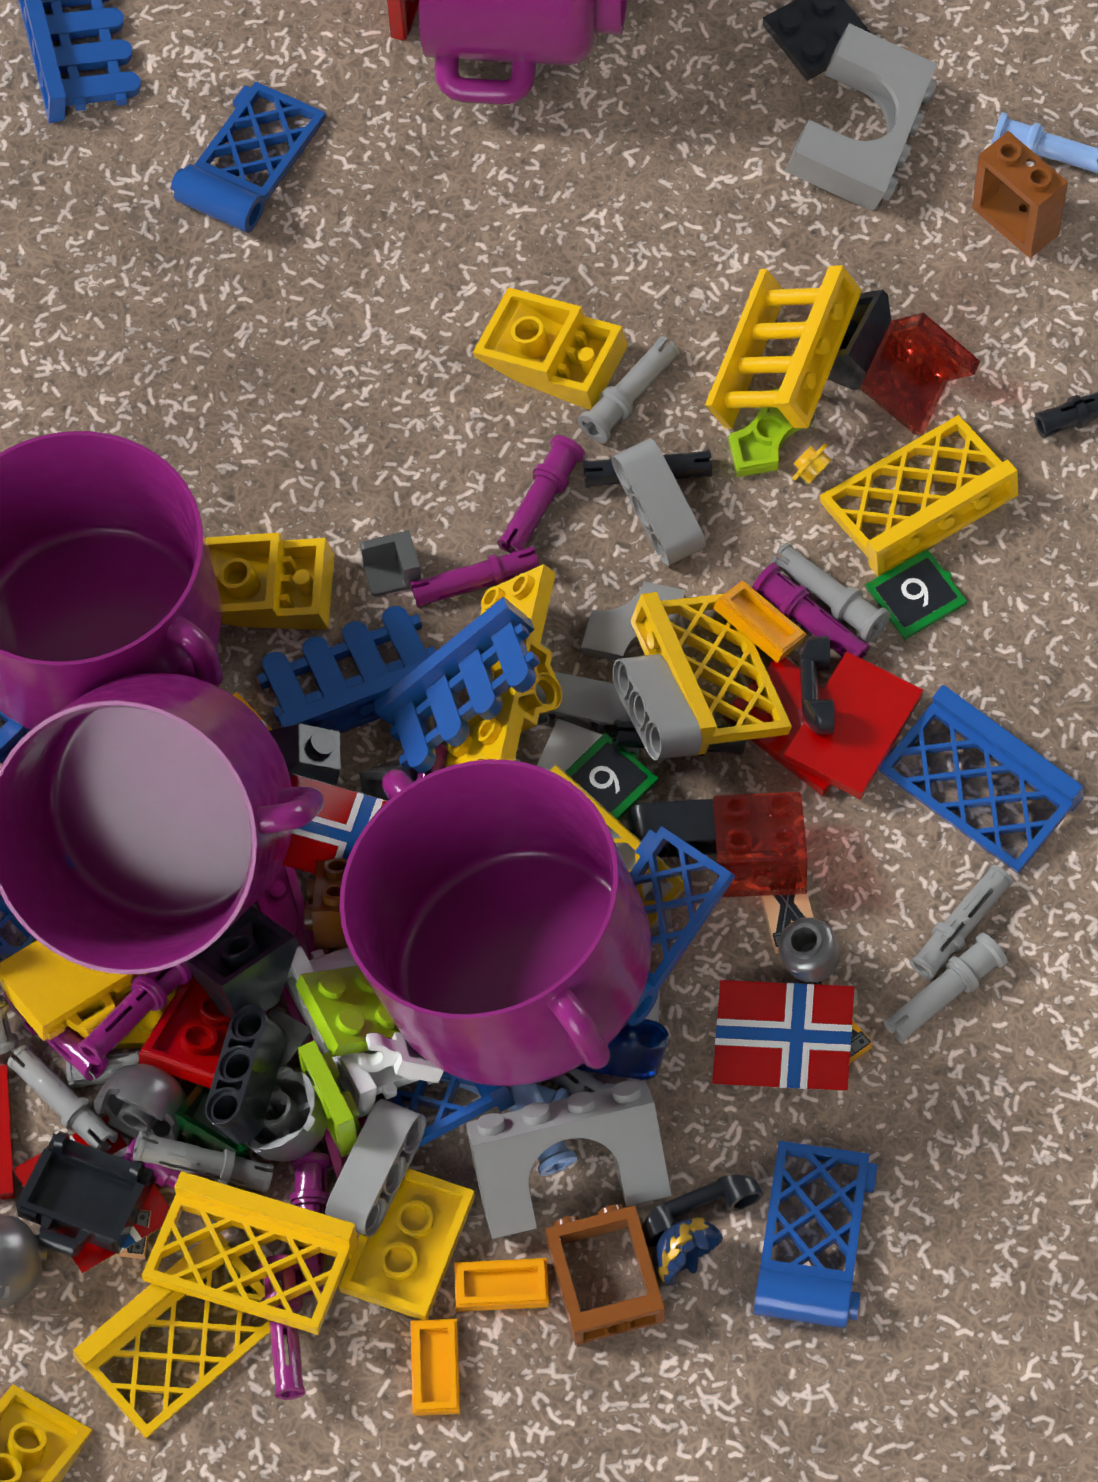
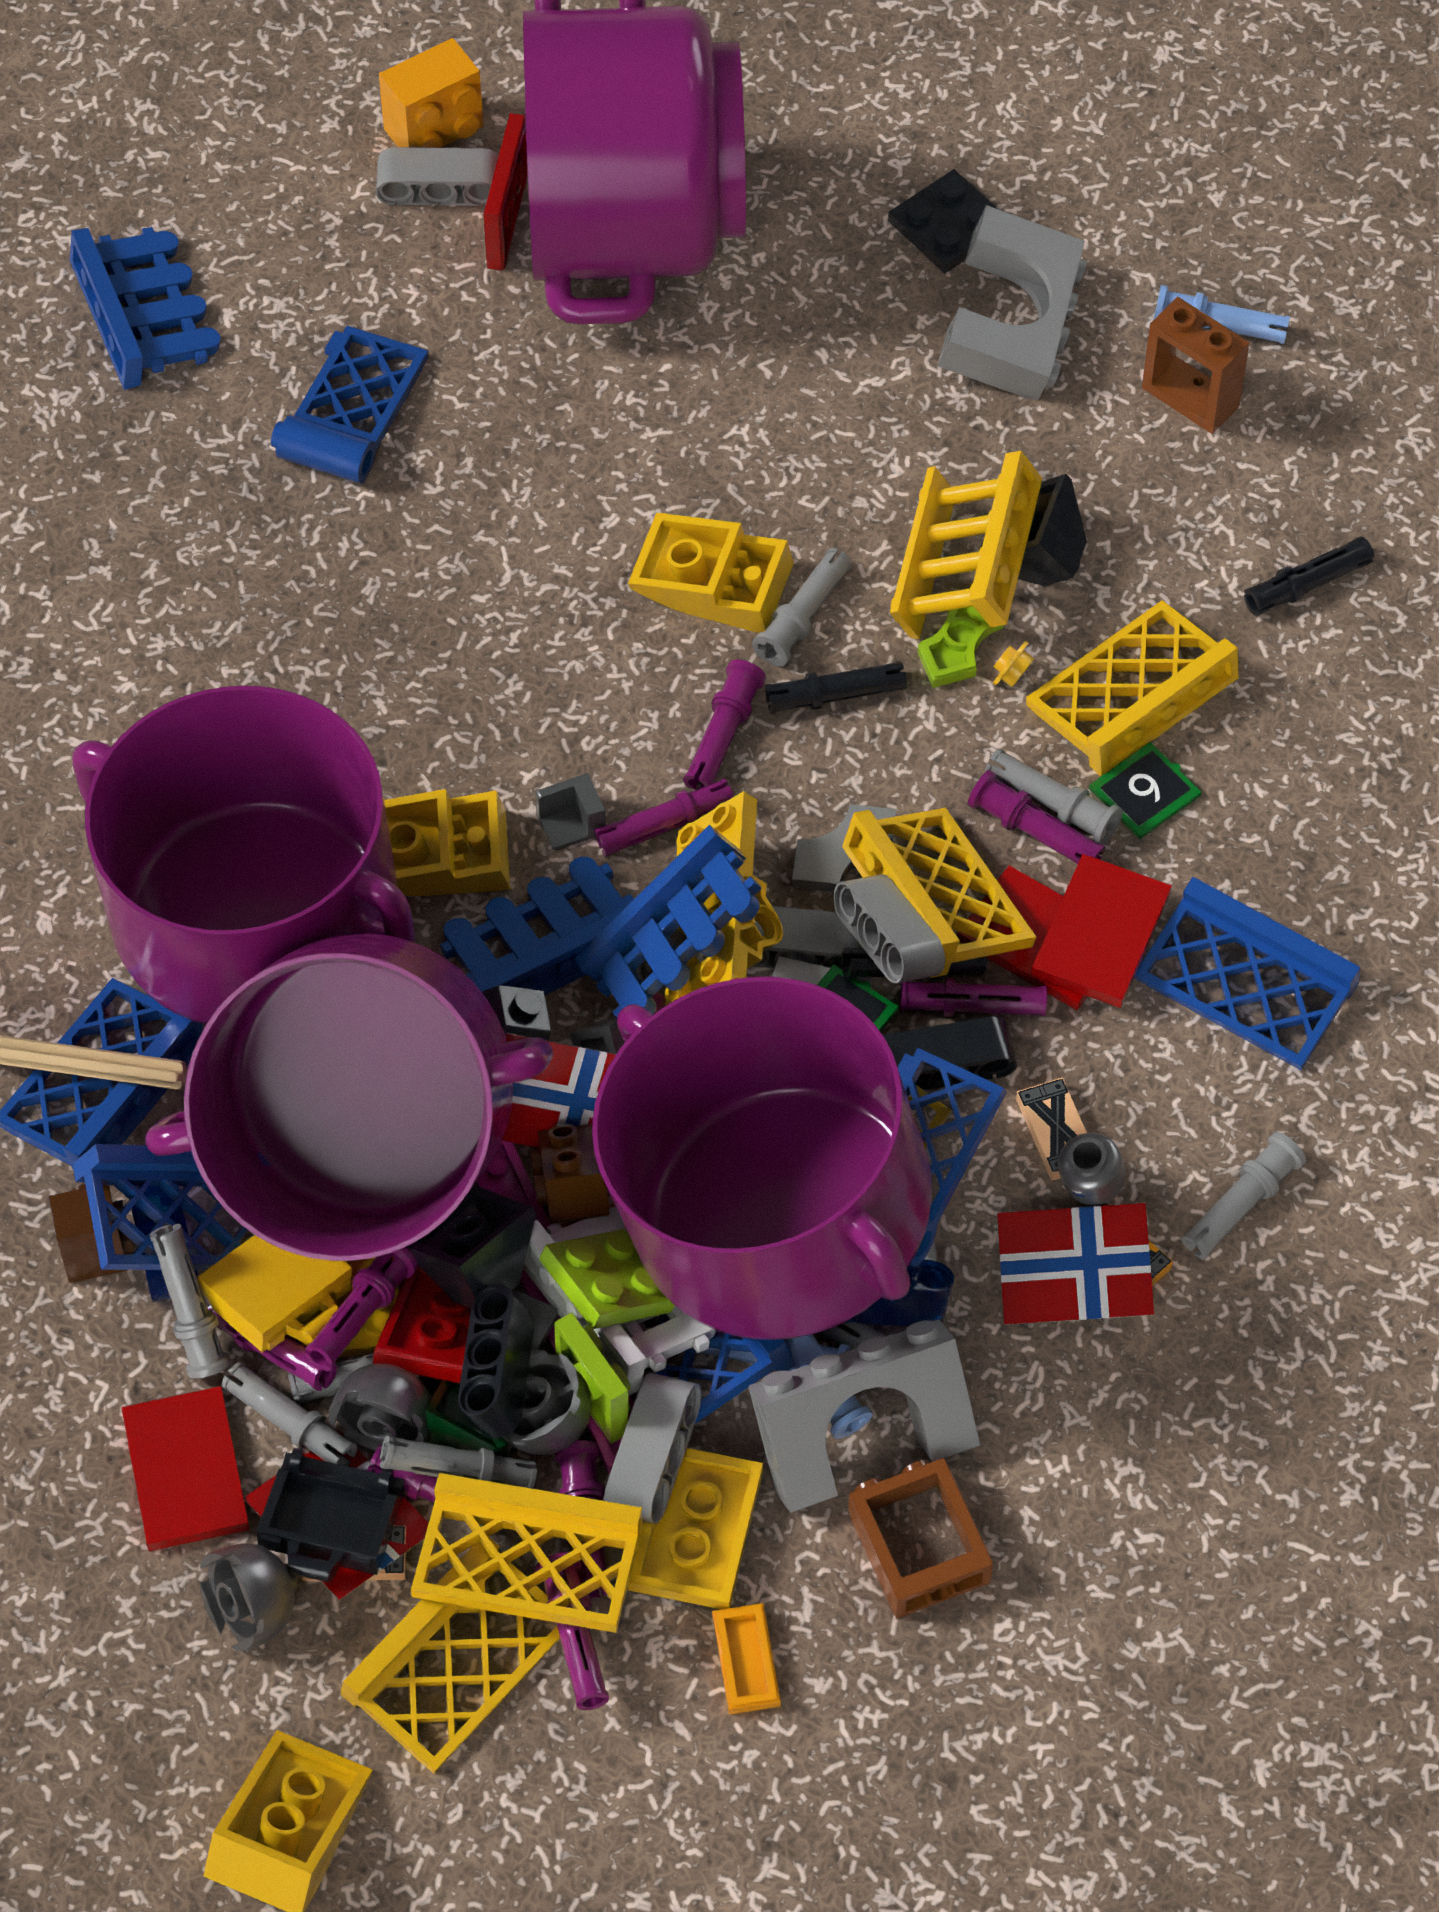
camera: 10 degrees left, 5 degrees down
(400, 1055) = (669, 1321): white plate -> none
(501, 1284) = (806, 1562): light orange tile -> none
(658, 501) = (855, 718): light grey beam -> none
(676, 770) = (915, 997): none -> magenta pin
(683, 1245) = (1002, 1495): dark blue hair -> none
(738, 1191) = (1050, 1431): black bar -> none
(759, 621) = (983, 832): light orange tile -> none
(762, 843) = (1027, 1057): clear red bracket -> none
(805, 1291) = (1146, 1530): blue piece -> none
(816, 711) = (1063, 920): black bar -> none
(914, 369) = (1109, 553): clear red bracket -> none
(950, 935) = (1240, 1139): light grey pin -> none

